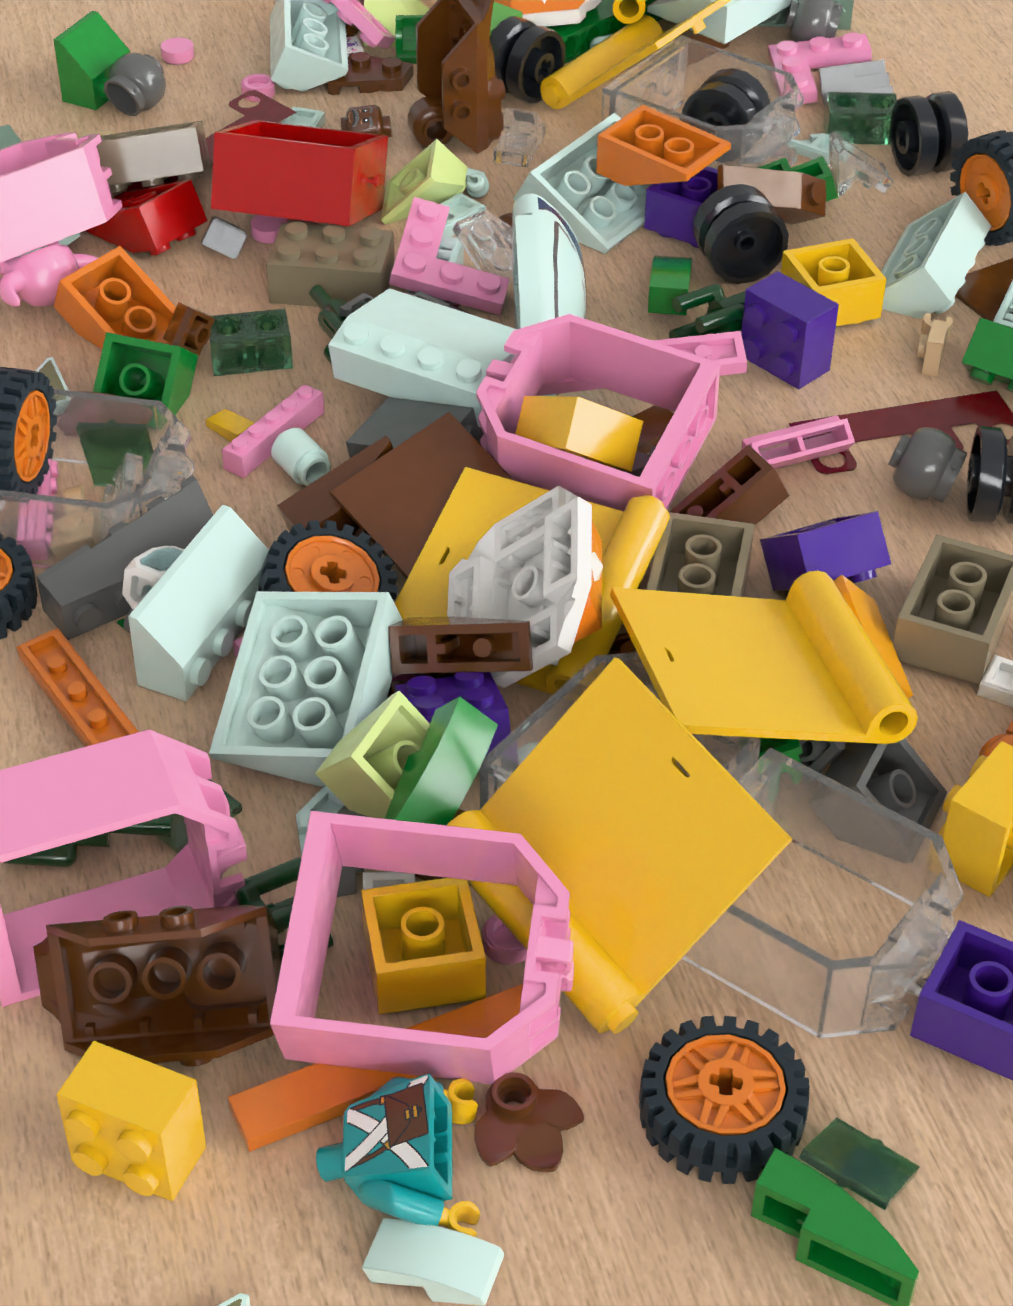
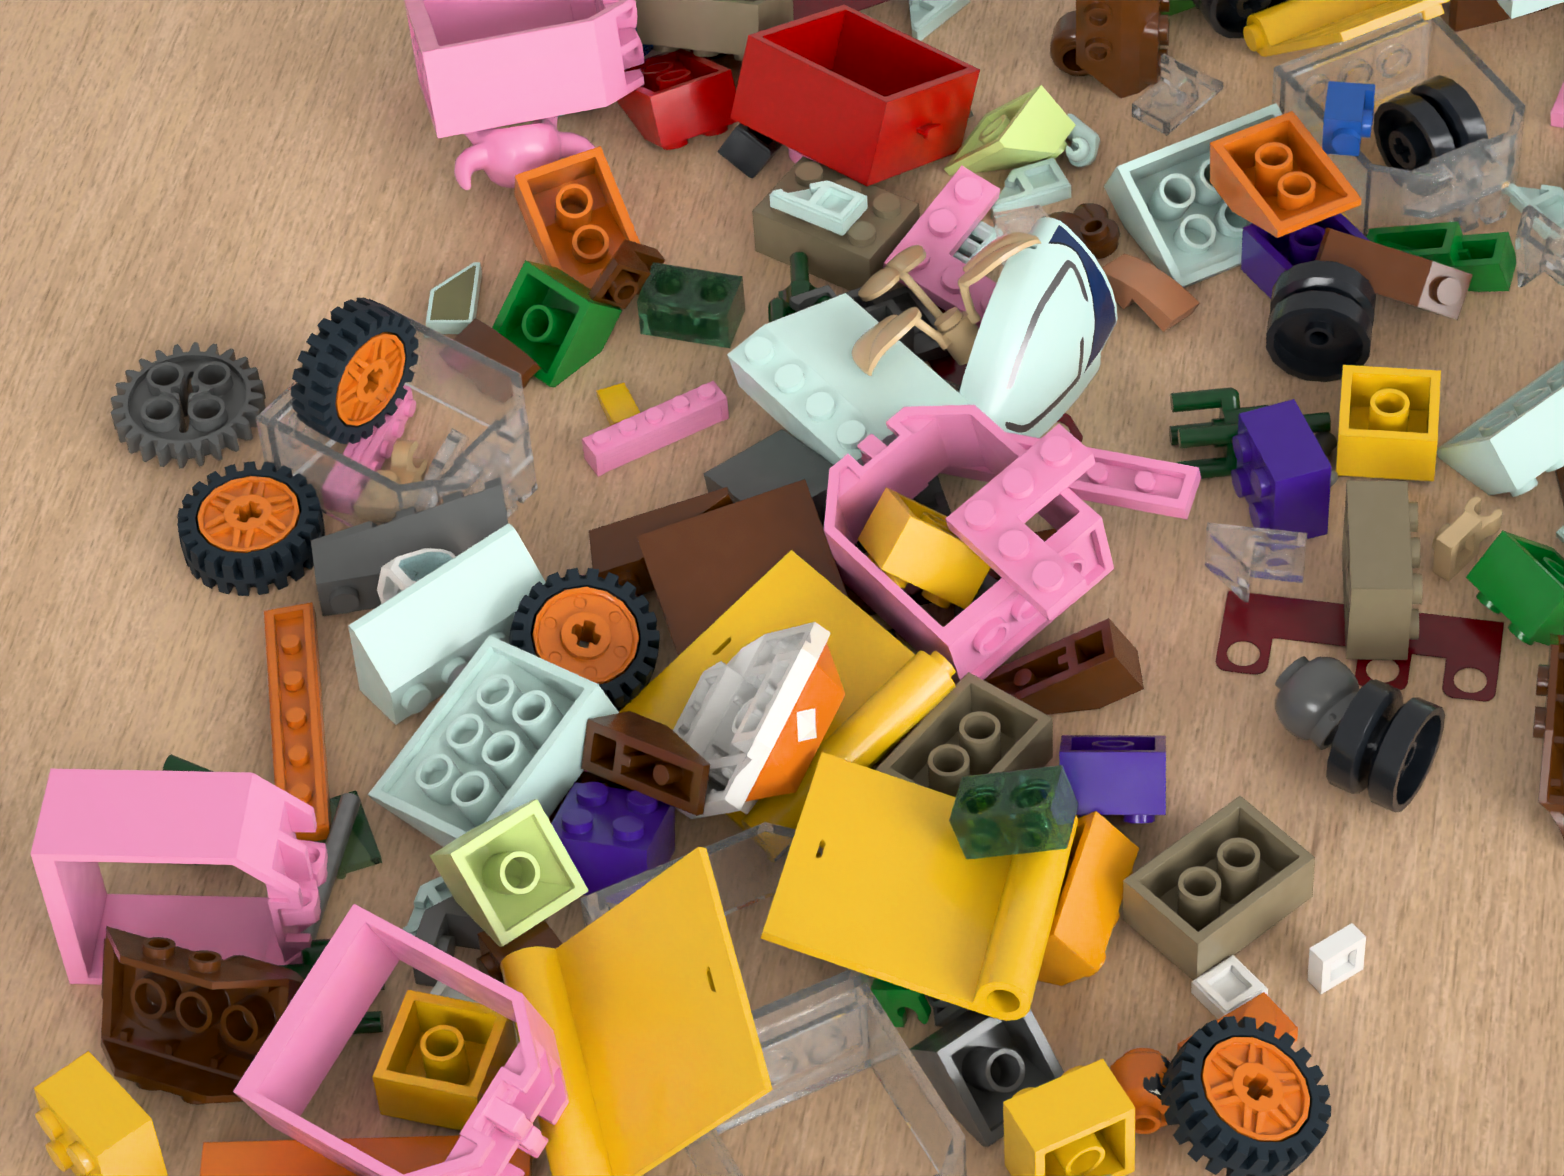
camera: 30 degrees right, 5 degrees up
(107, 445) = (460, 407): clear green piece -> none
(300, 456) = (659, 472): light aqua brick -> none
(324, 242) = (823, 205): none -> light aqua tile
(367, 120) = (994, 33): reddish brown head -> none
(444, 767) = (531, 902): slope -> none
(485, 293) = (955, 328): none -> tan plant
(605, 254) = (1151, 289): none -> nougat slope
(643, 392) = (996, 514): none -> bright pink plate
(668, 280) = (1210, 356): green slope -> none
(691, 97) = (1347, 117): none -> blue brick
(798, 390) = (1247, 553): none -> clear slope
(802, 582) = (1014, 812): none -> clear green brick
(803, 450) = (1202, 624): bright pink piece -> none
(905, 368) = (1379, 570): none -> dark tan brick

